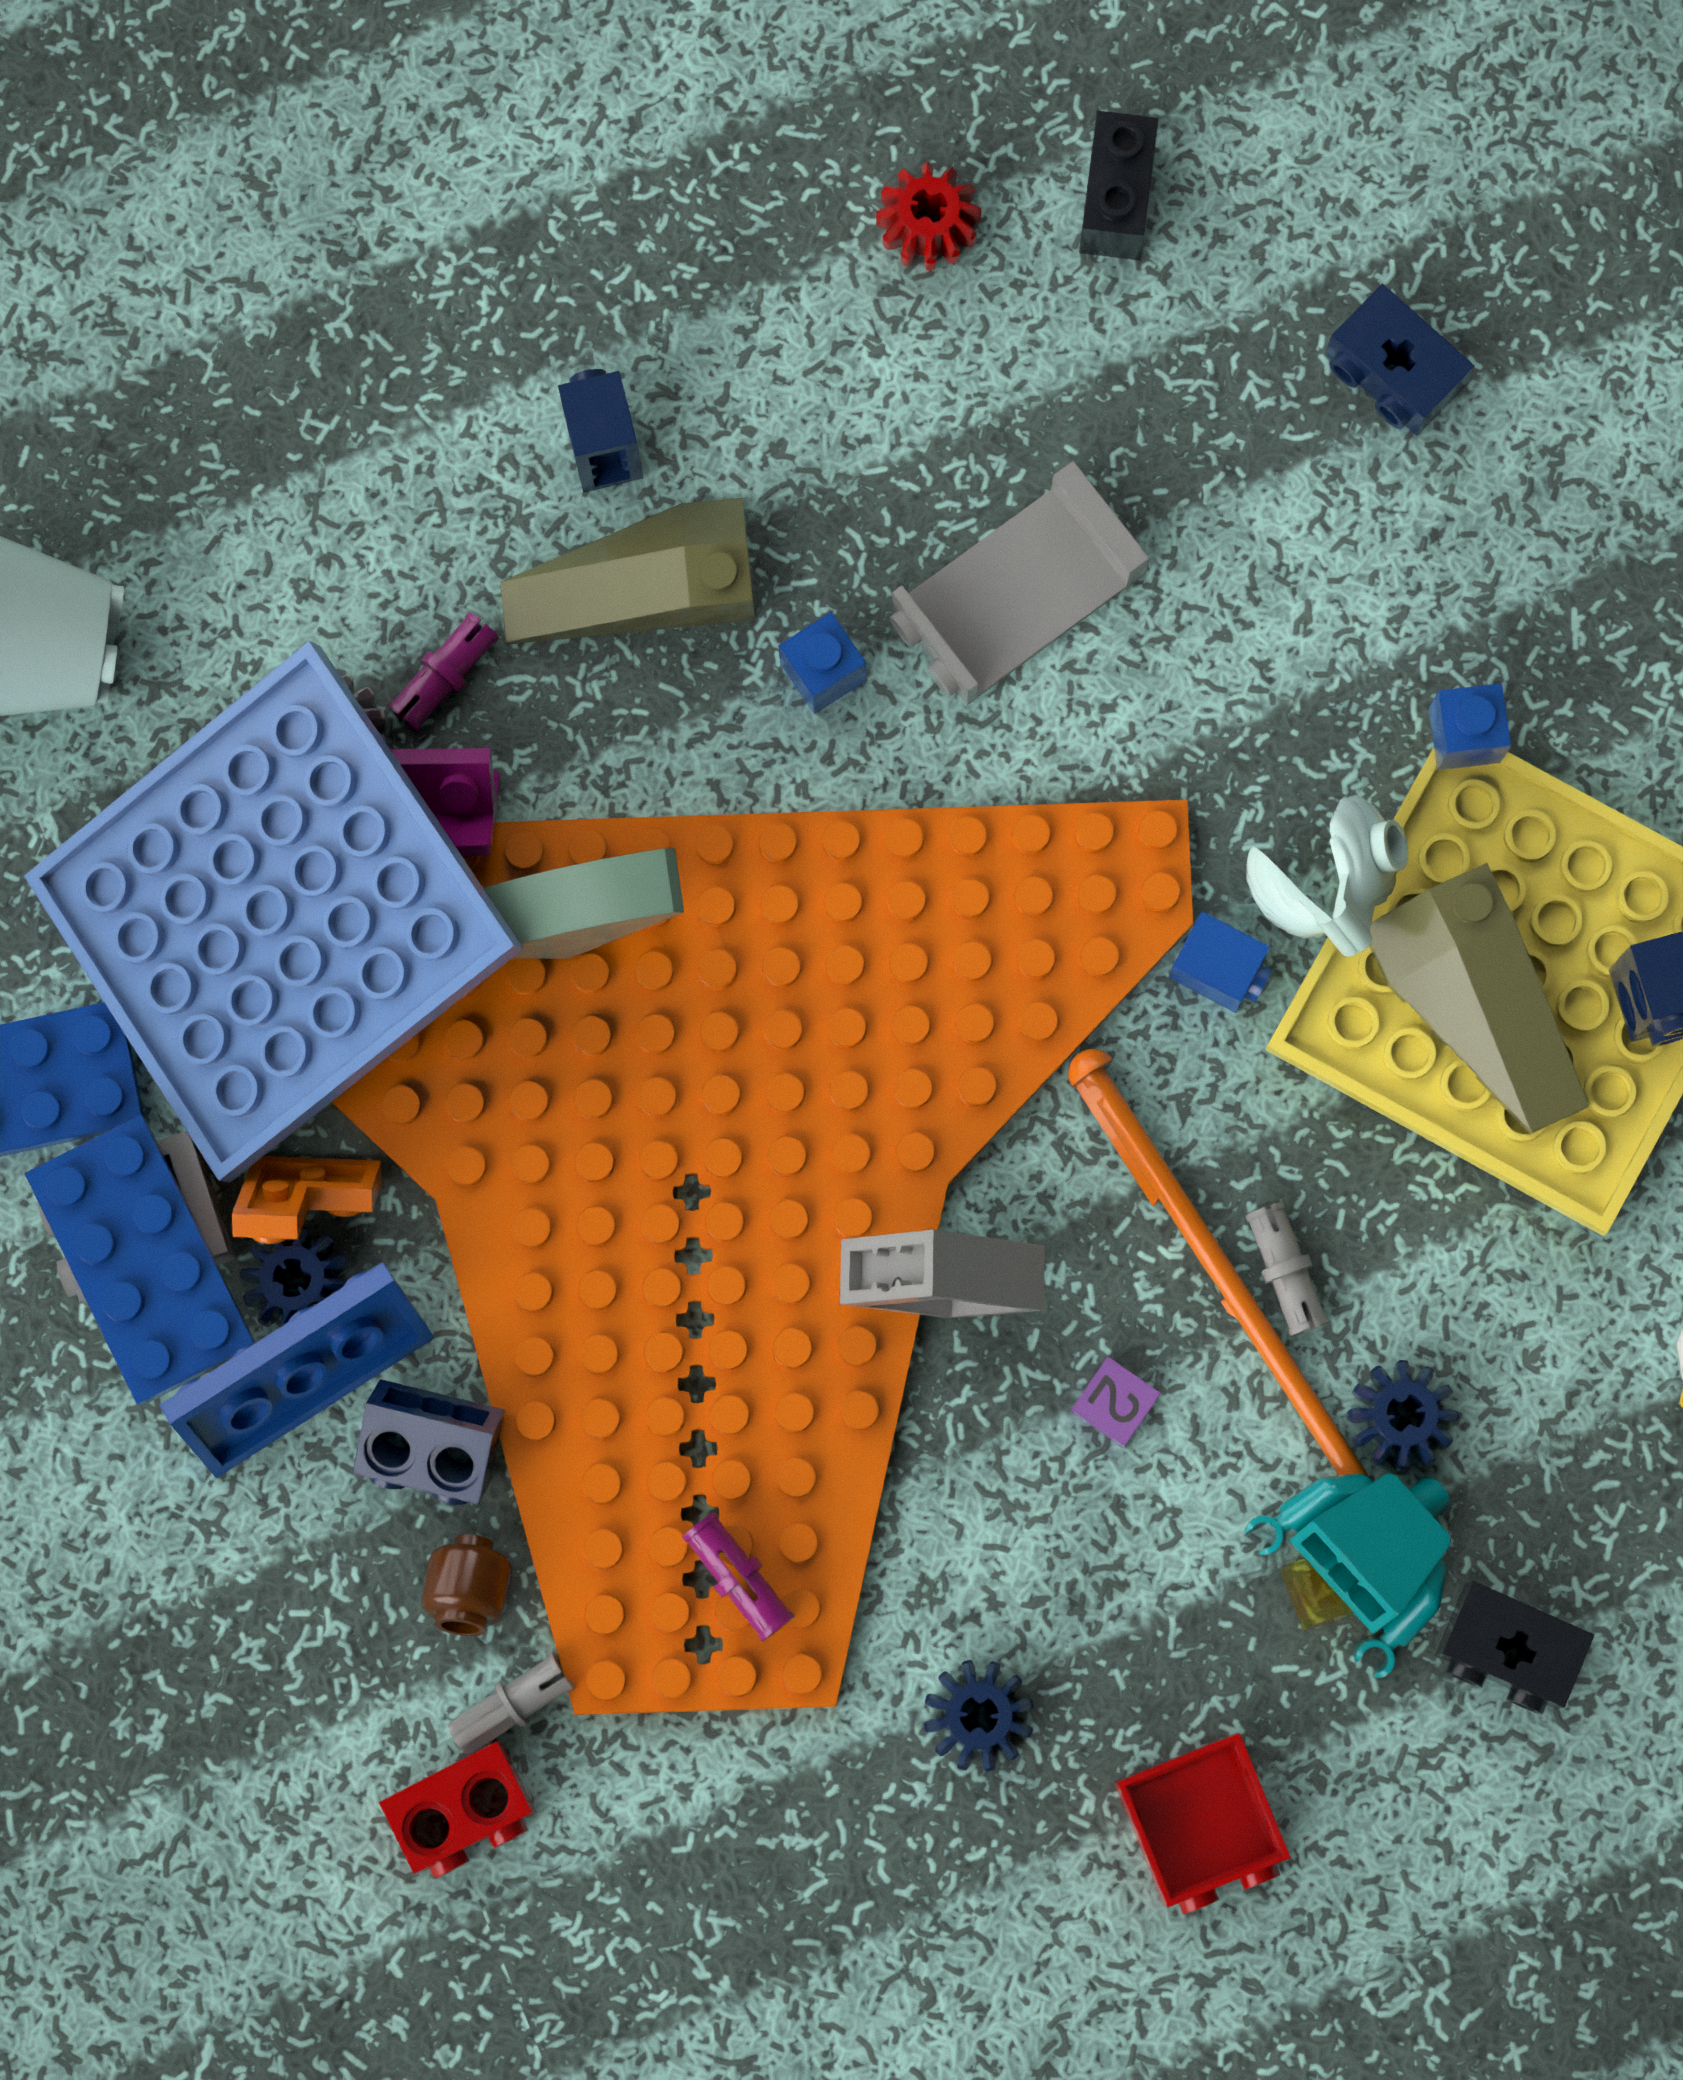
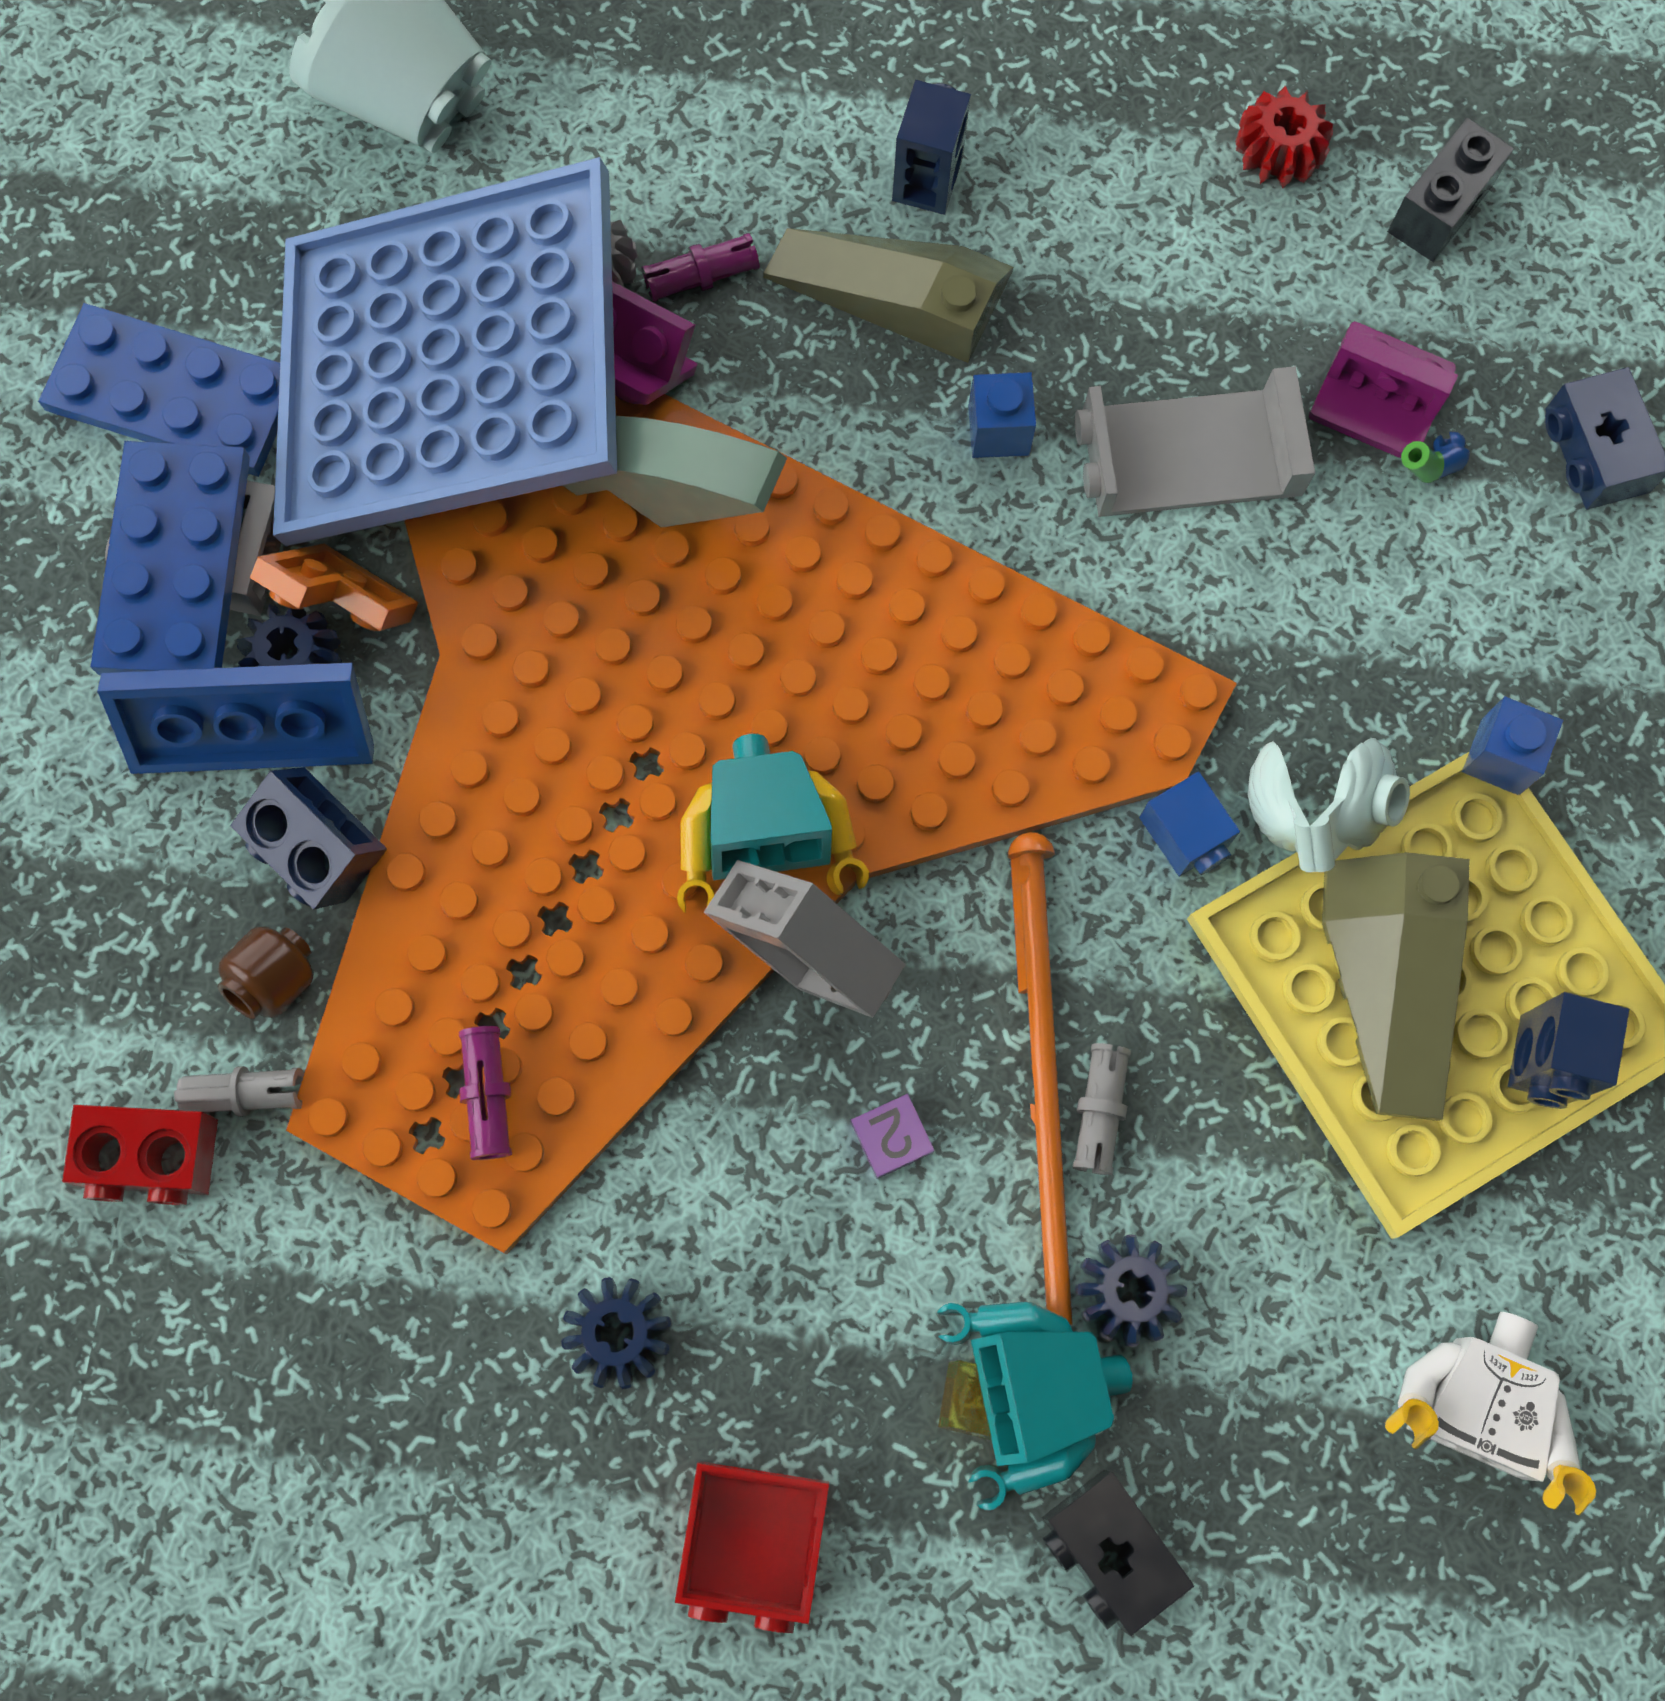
camera: 25 degrees right, 5 degrees down
(840, 1184) = (766, 815): none -> teal torso
(1165, 427) = (1382, 390): none -> magenta bracket
(1249, 481) = (1430, 466): none -> arm

